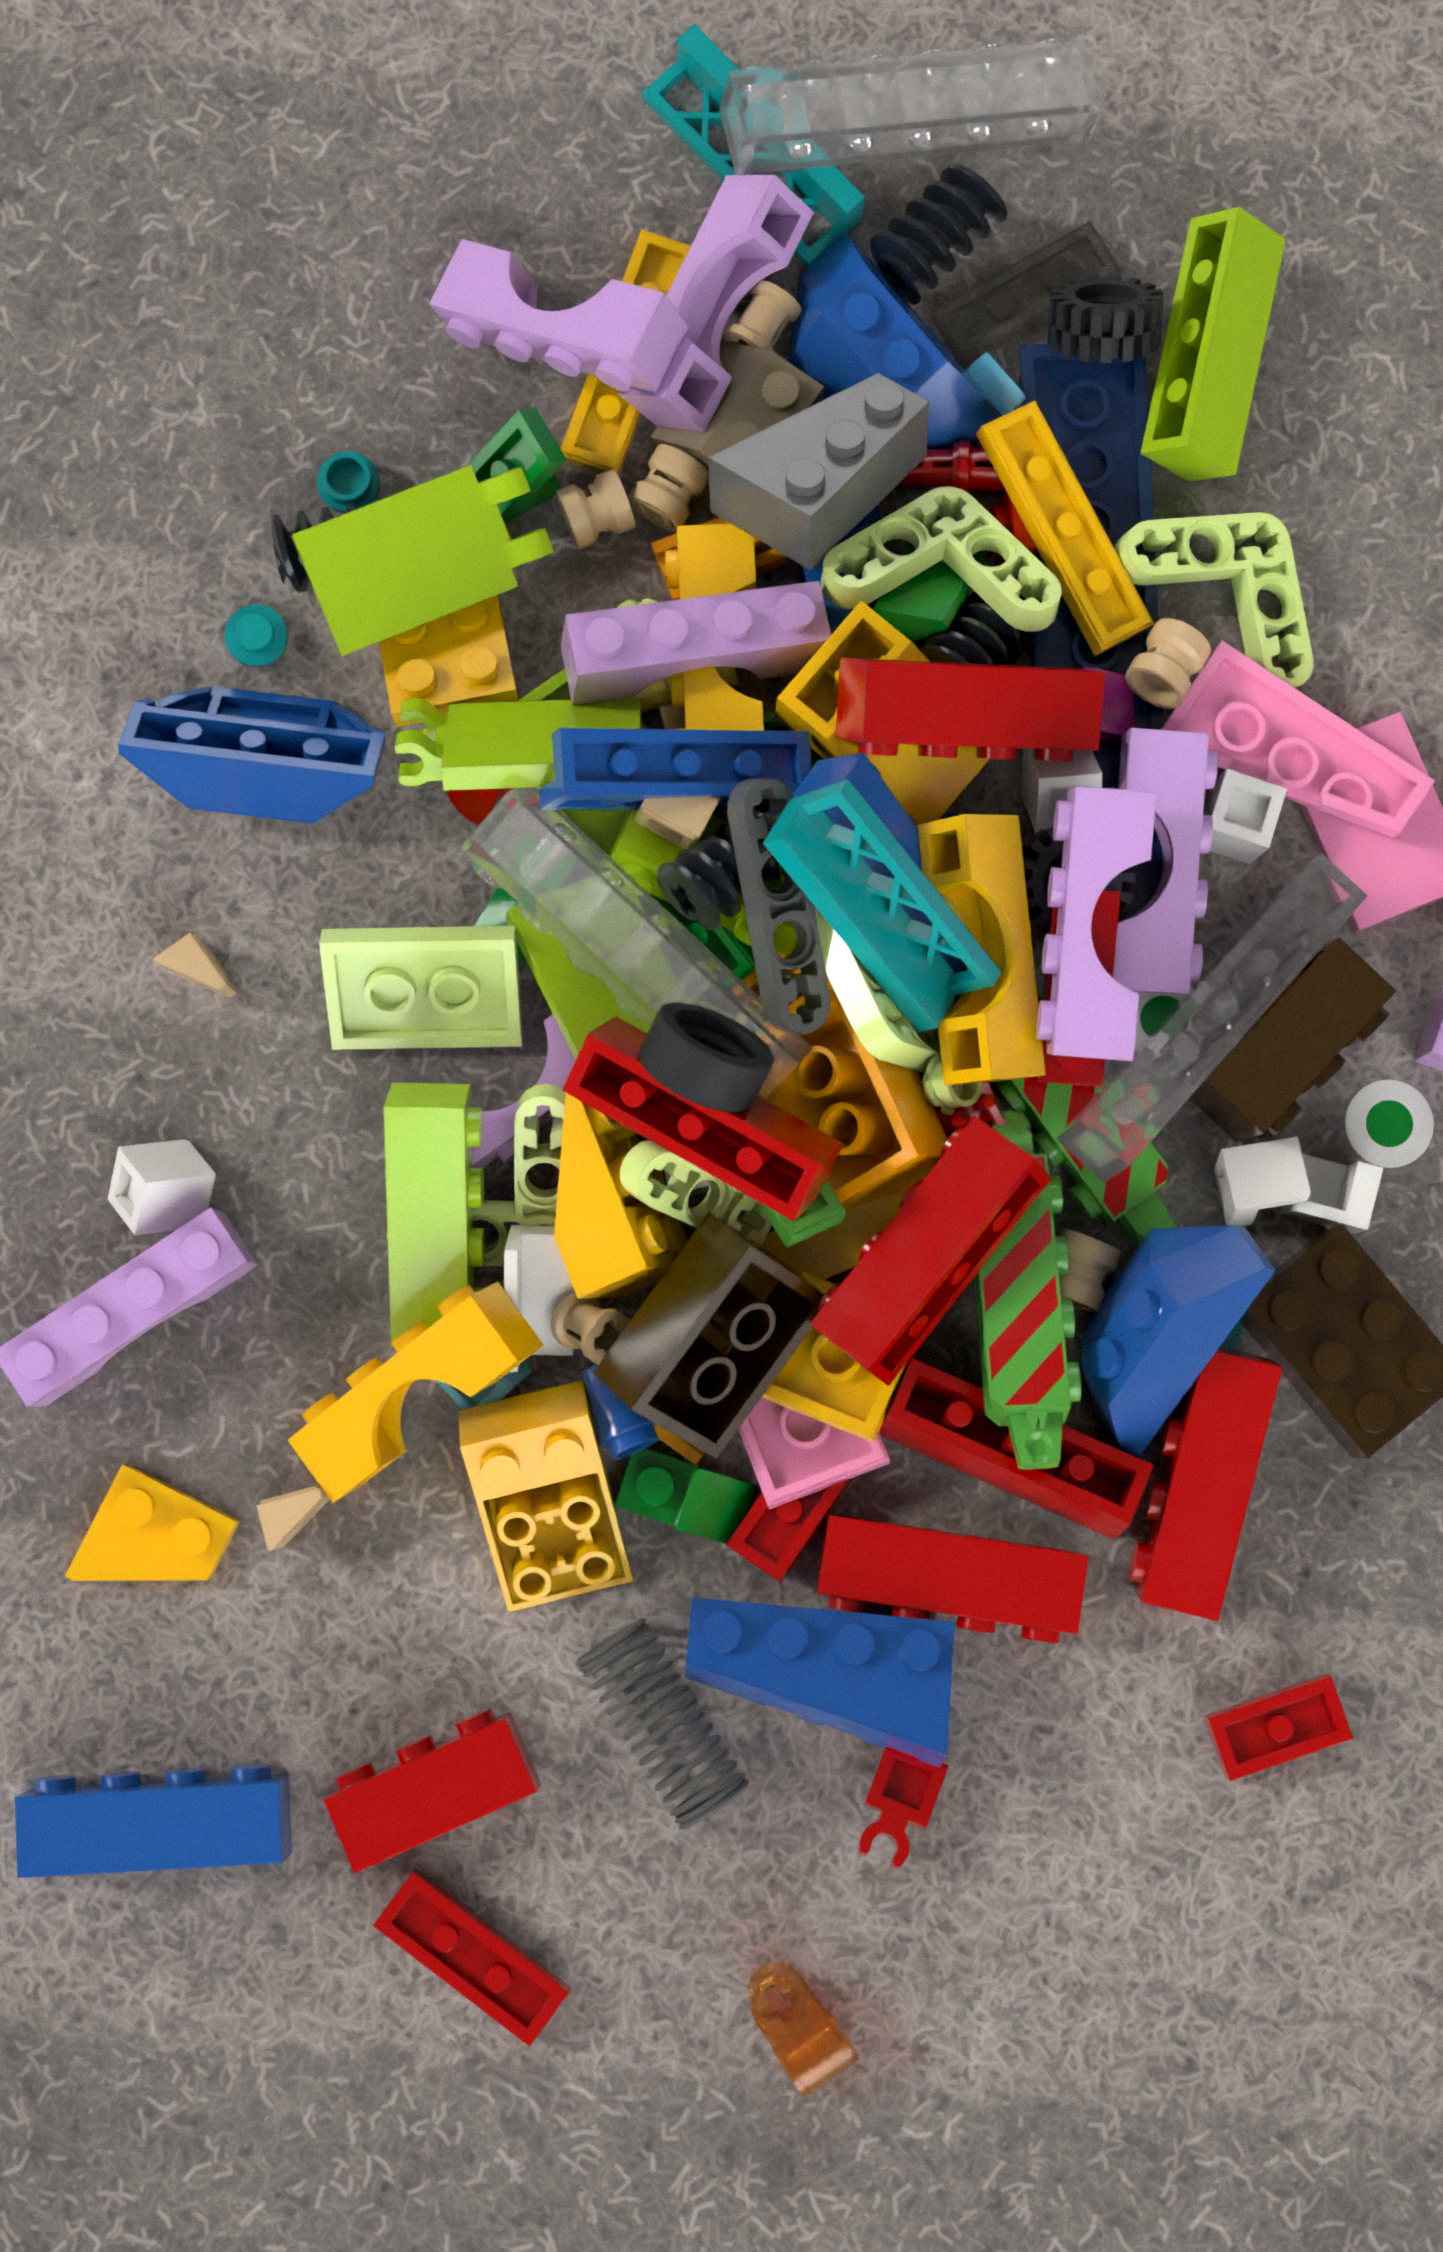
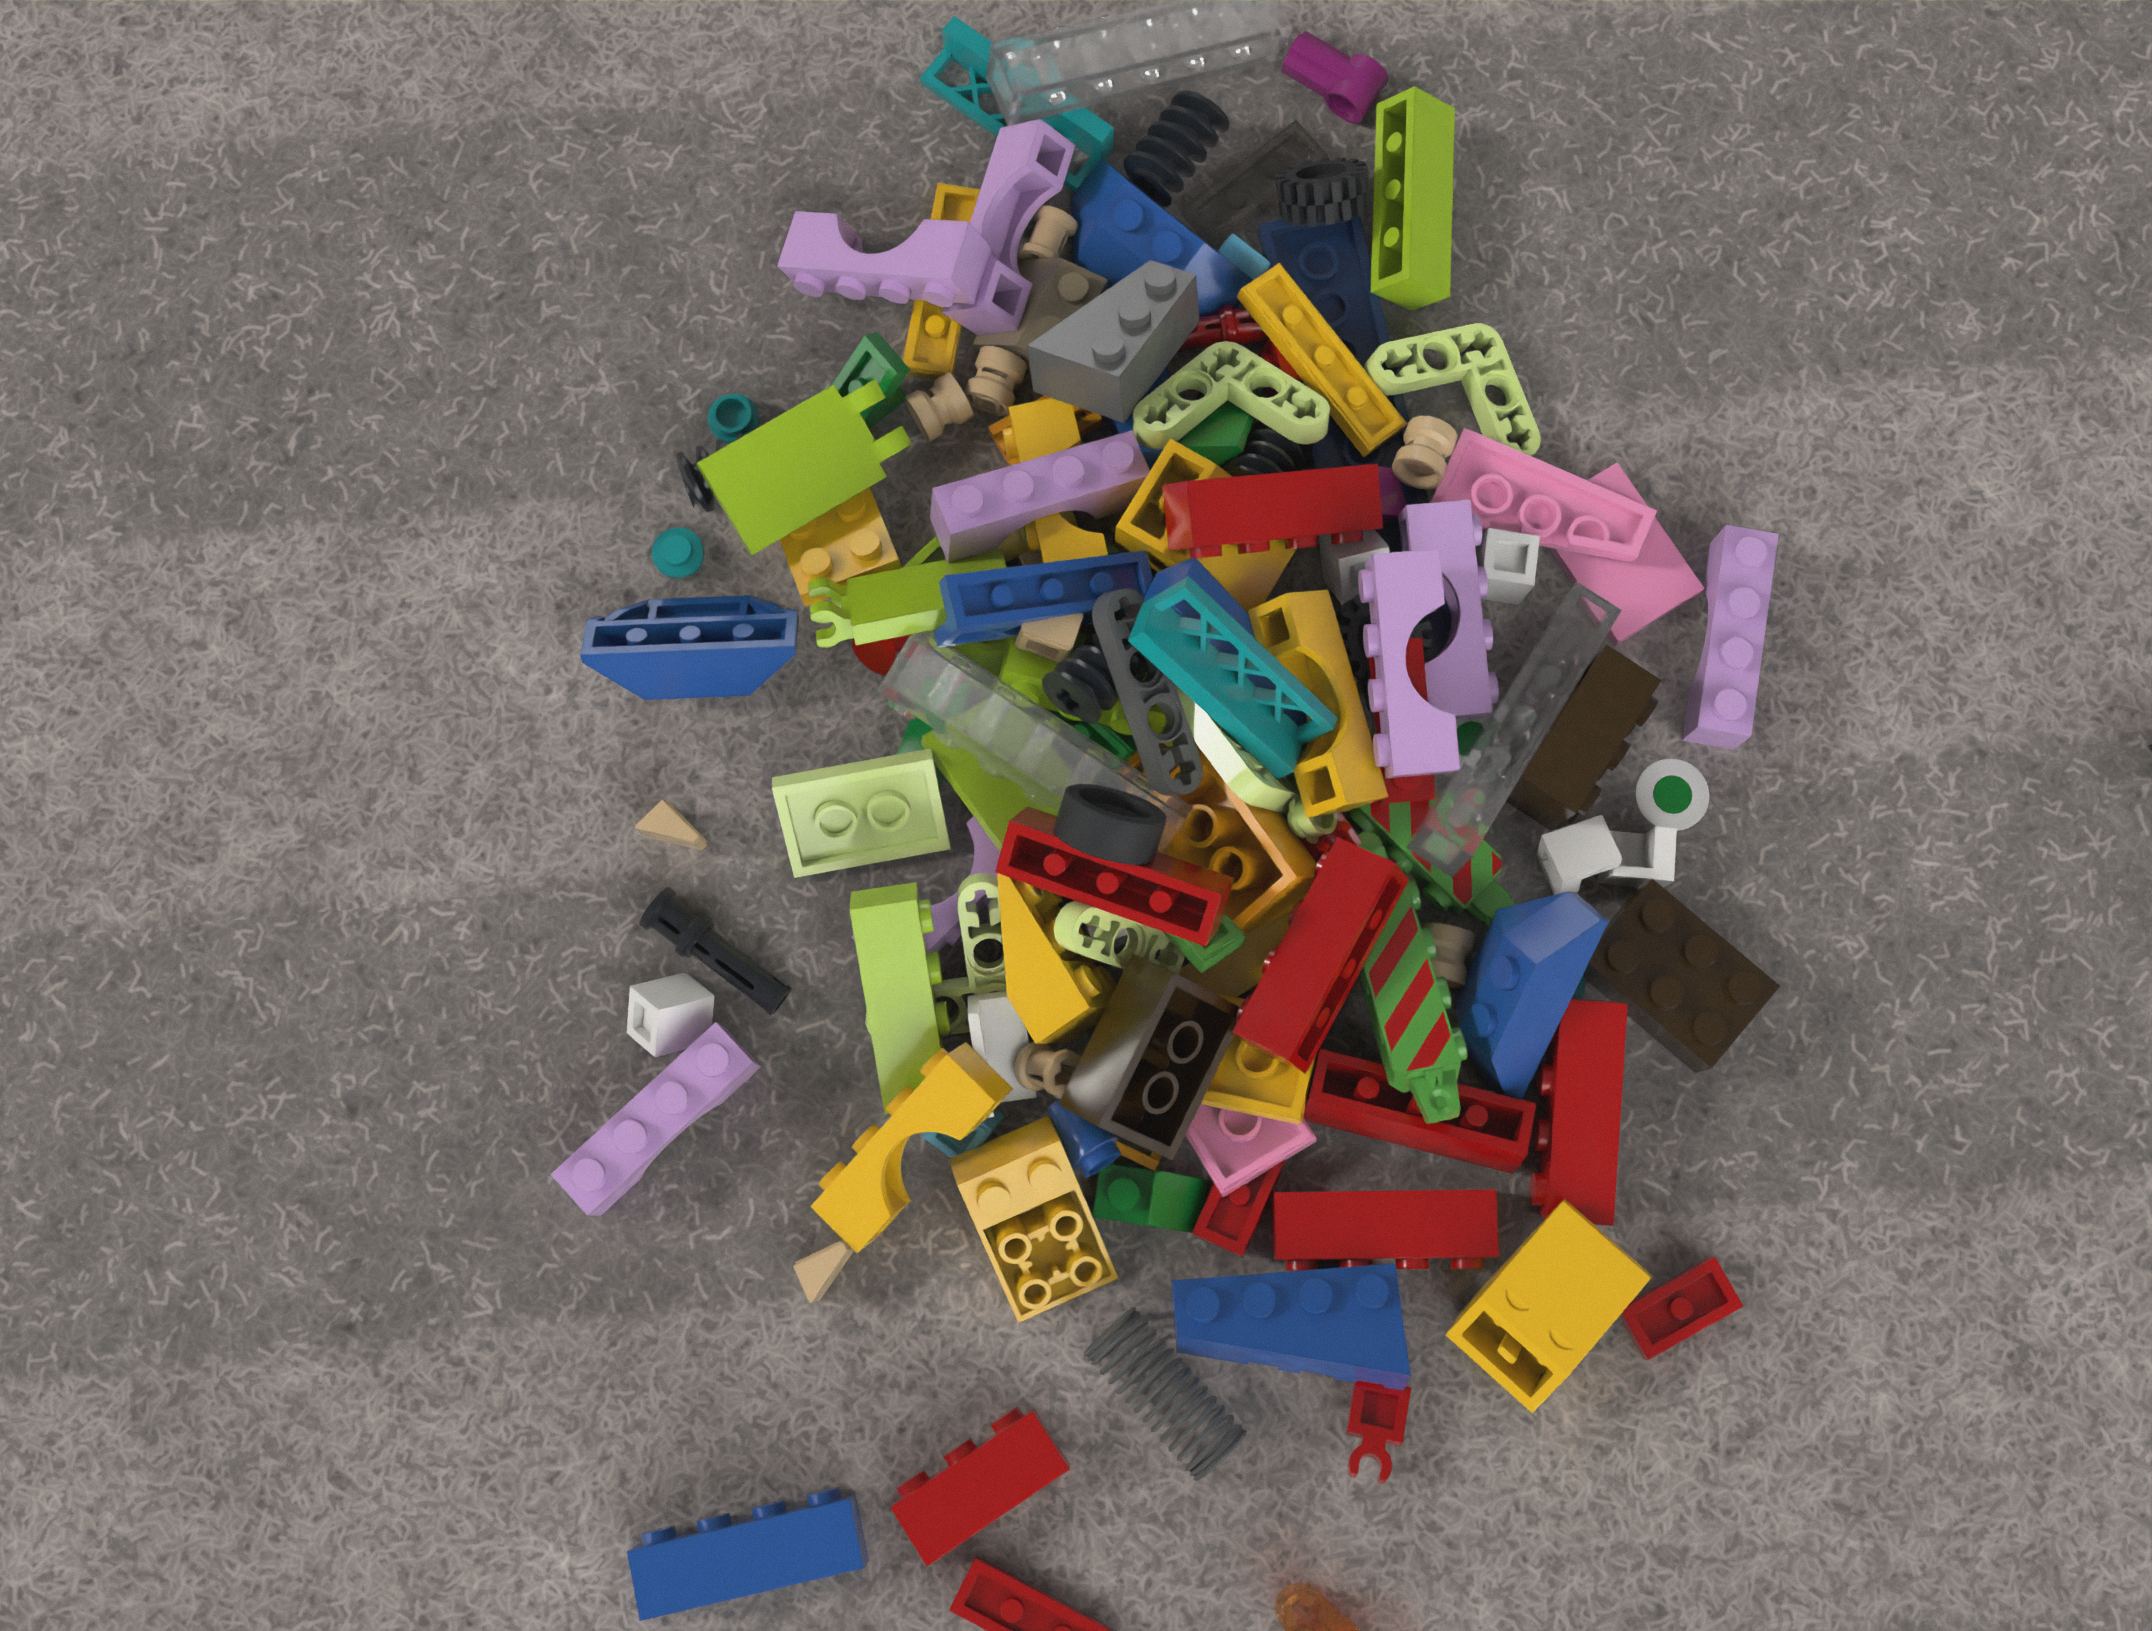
camera: 10 degrees left, 5 degrees down
(151, 1534) = (707, 1308): yellow wing -> none
(206, 1101) = (696, 937): none -> black pin
(1123, 1700) = (1547, 1305): none -> yellow slope
(1159, 183) = (1344, 81): none -> magenta piece

